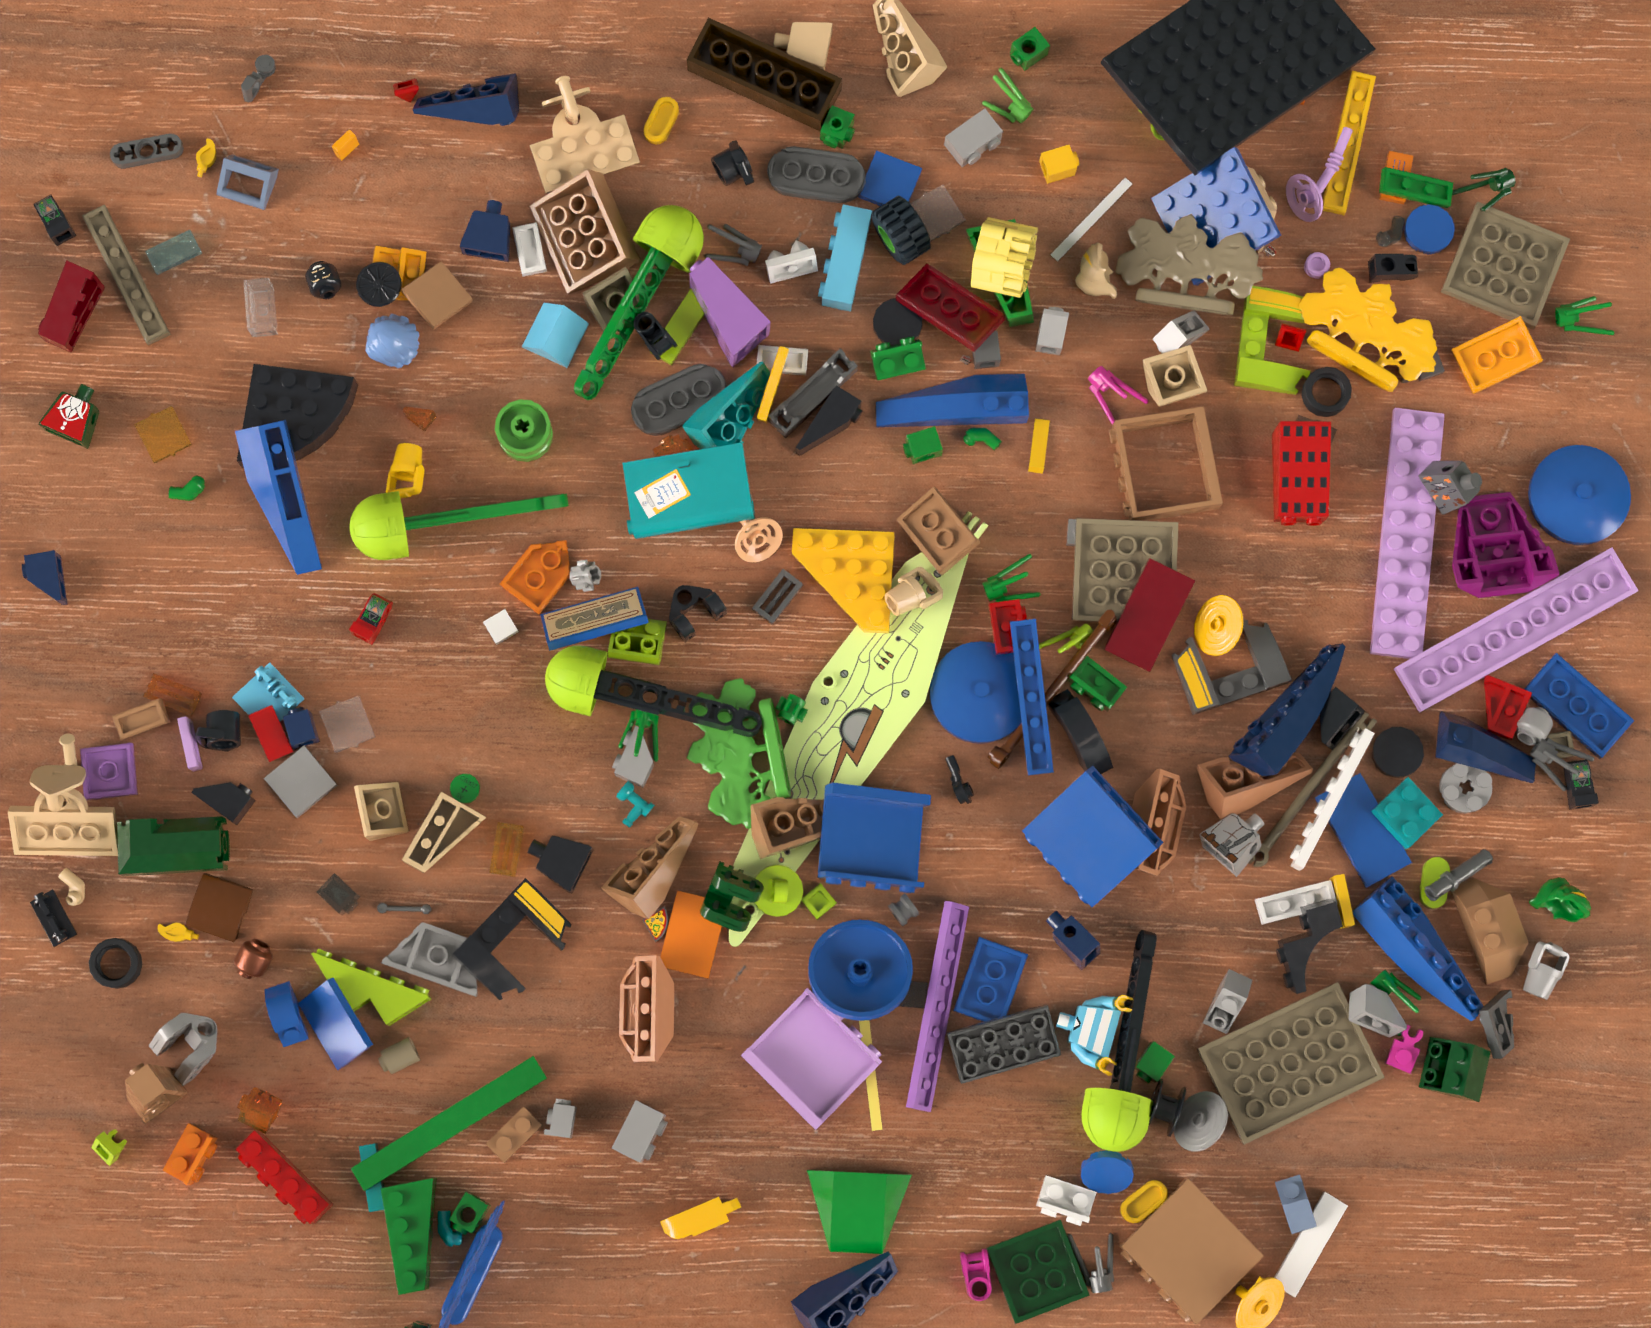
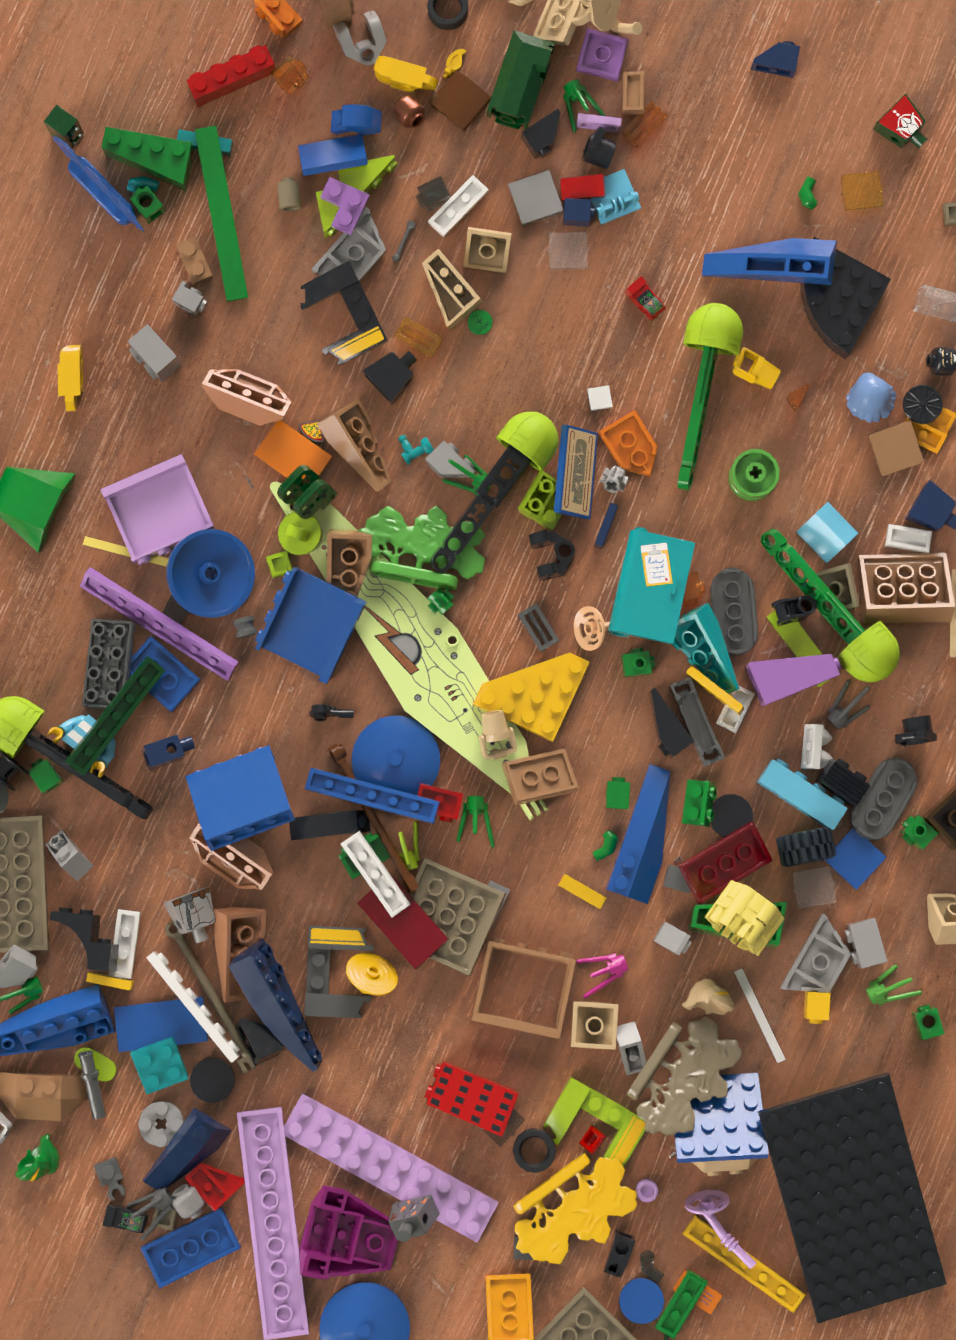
camera: 110 degrees right, 5 degrees up
(163, 782) = (576, 93): none -> green plant
(213, 981) = (403, 75): none -> yellow piece
(342, 862) = (458, 206): none -> white plate
(383, 979) = (350, 204): none -> medium lavender plate
(639, 565) = (606, 526): none -> dark blue tile
(775, 477) = (637, 663): none -> green brick
(816, 220) = (843, 782): none -> black brick
(1011, 179) = (818, 960): none -> light grey wing
(1060, 1008) = (114, 716): none -> dark green plate
(1113, 661) = (375, 874): none -> white tile
(1541, 820) = (109, 1173): none -> dark grey plate

